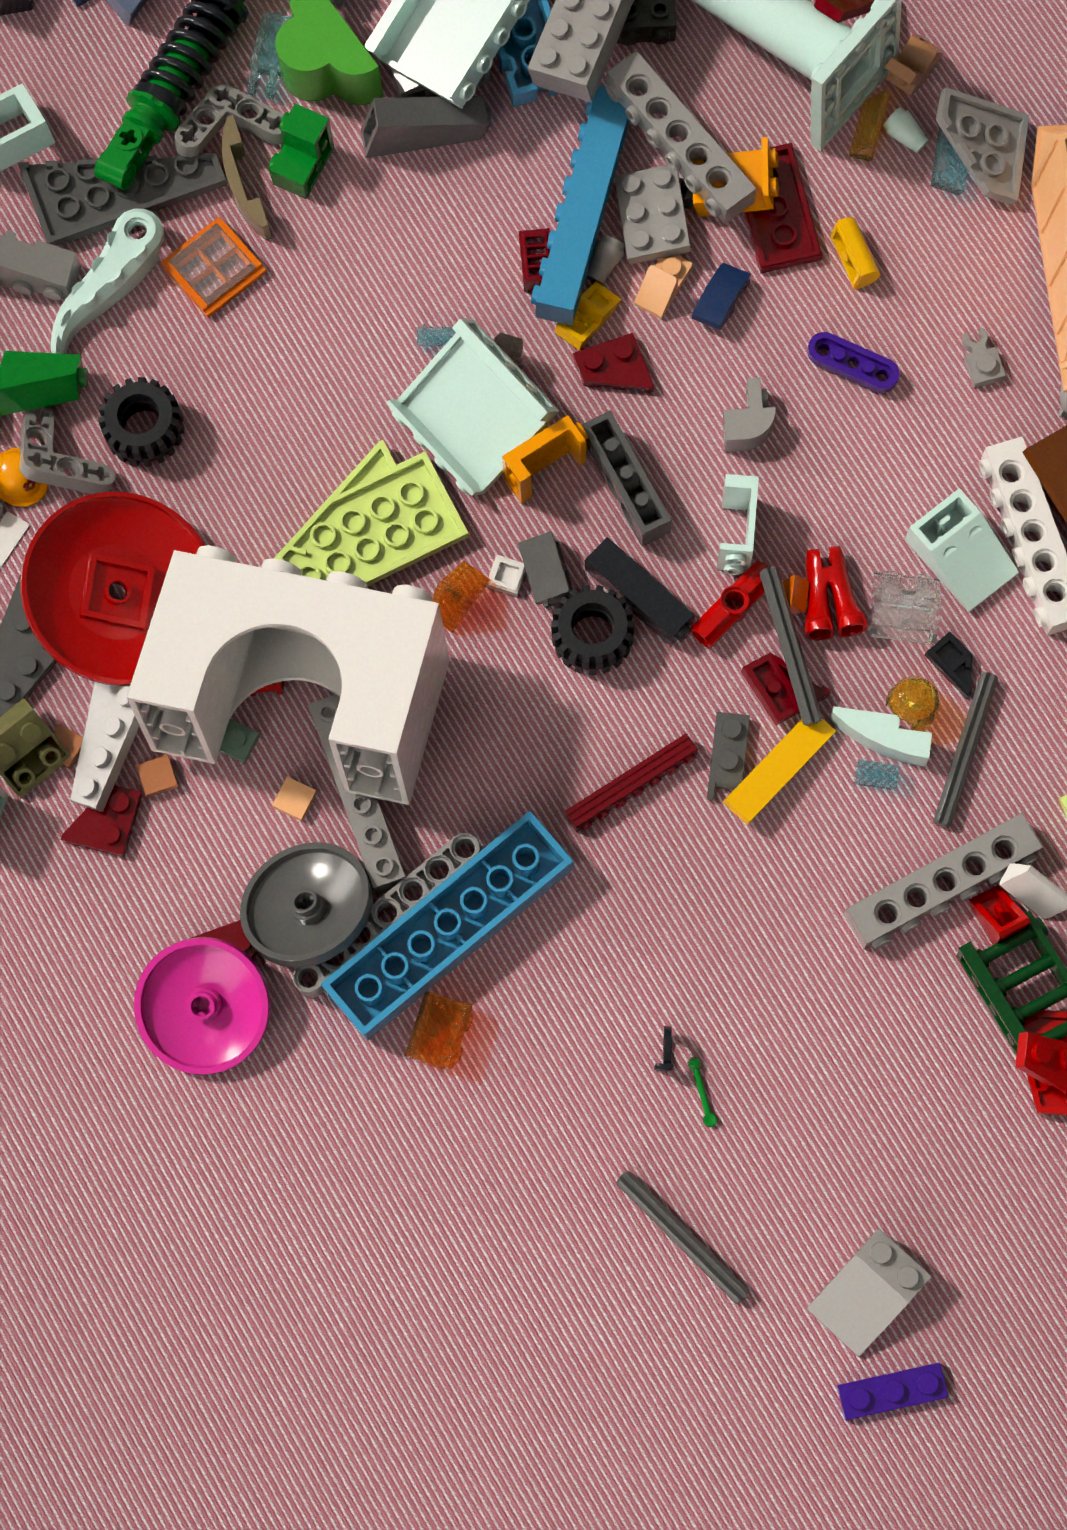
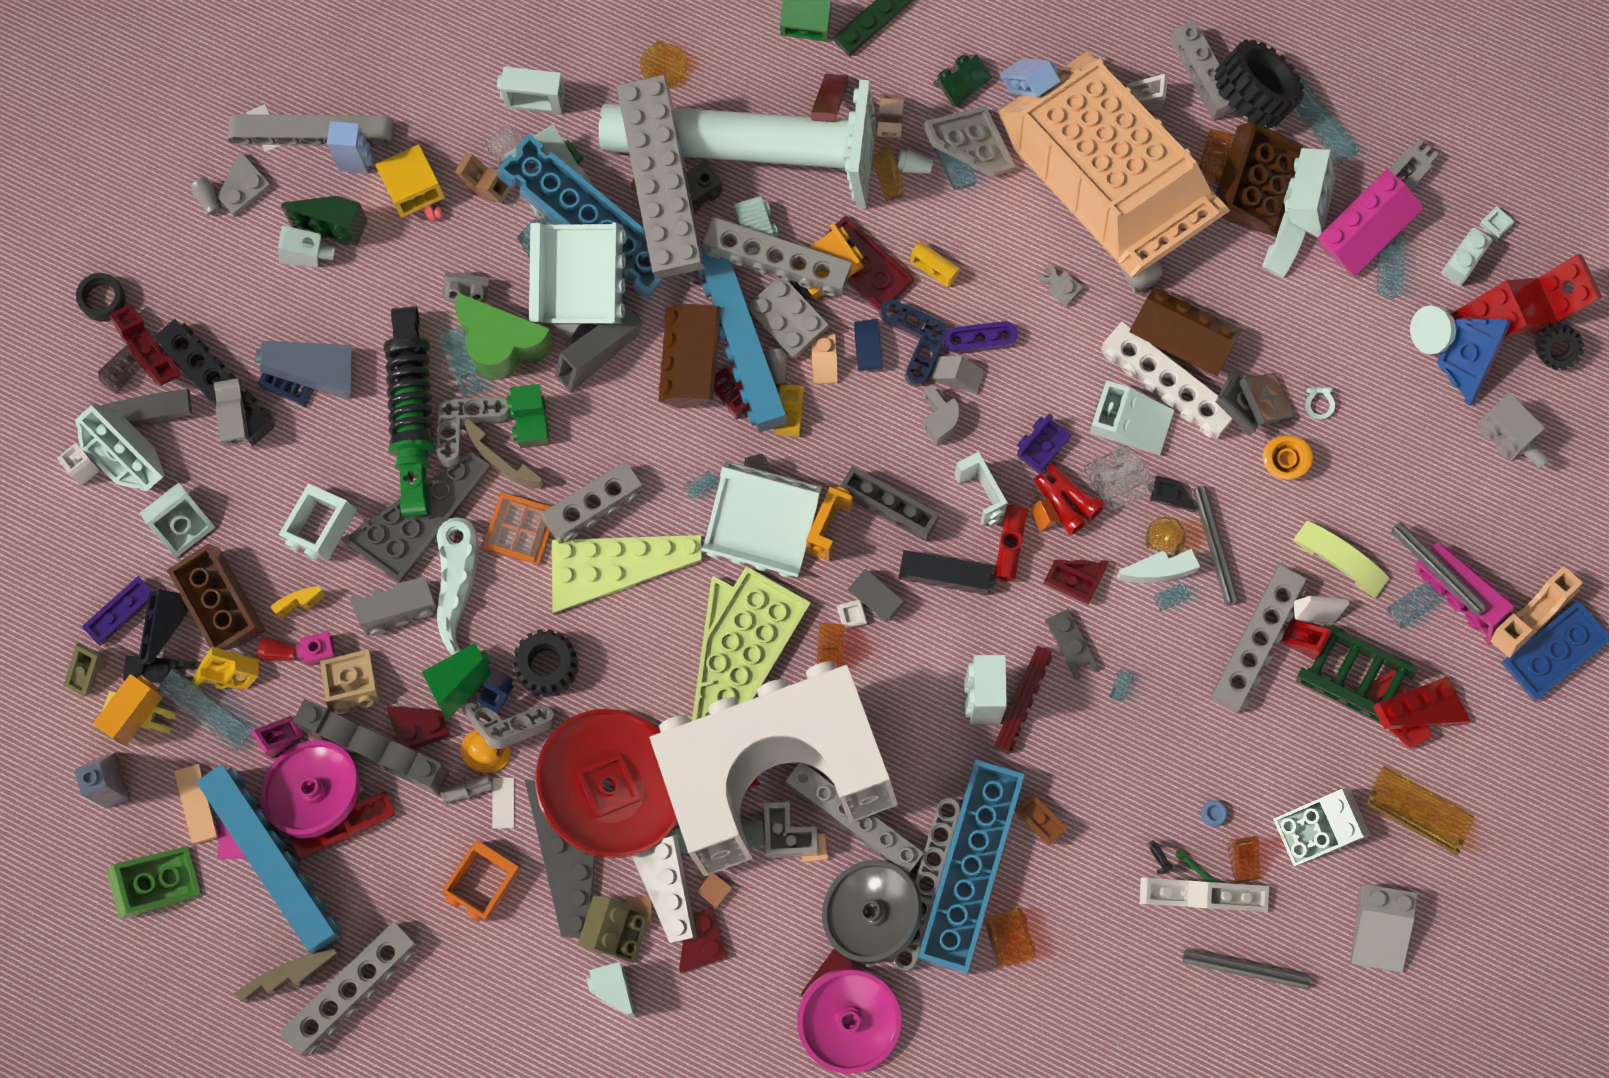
camera: 35 degrees left, 0 degrees up
(72, 419) = (496, 691): none -> dark blue window
(265, 762) = (782, 838): none -> light grey brick
(280, 363) = (607, 565): none -> yellowish green wing
(293, 271) = (619, 477): none -> light grey brick
(514, 187) = (689, 355): none -> reddish brown slope
(561, 925) = (1040, 820): none -> dark orange plate
(589, 604) = (939, 596): black tyre -> none
(589, 739) = (985, 690): none -> light aqua brick
(614, 365) = (828, 432): dark red wing -> none
(687, 1122) = (1204, 894): none -> white bracket
(690, 83) = (754, 215): none -> light aqua brick
(752, 836) = (1121, 685): none -> clear light blue pin
(762, 1042) = (1213, 813): none -> medium blue tile
(762, 1113) = (1244, 858): none -> clear orange slope
(777, 769) = (1108, 630): yellow tile -> none
(788, 329) = (926, 338): none -> dark blue beam
(790, 646) = (1066, 547): dark grey axle -> none
(801, 387) = (957, 373): none -> light grey slope
(843, 517) = (1043, 443): none -> dark purple bracket
(876, 1135) = (1322, 826): none -> light aqua slope
(892, 1391) = (1436, 980): dark purple plate -> none
(1001, 1189) = (1420, 810): none -> clear yellow slope
(1024, 72) = (962, 78): none -> dark green bracket

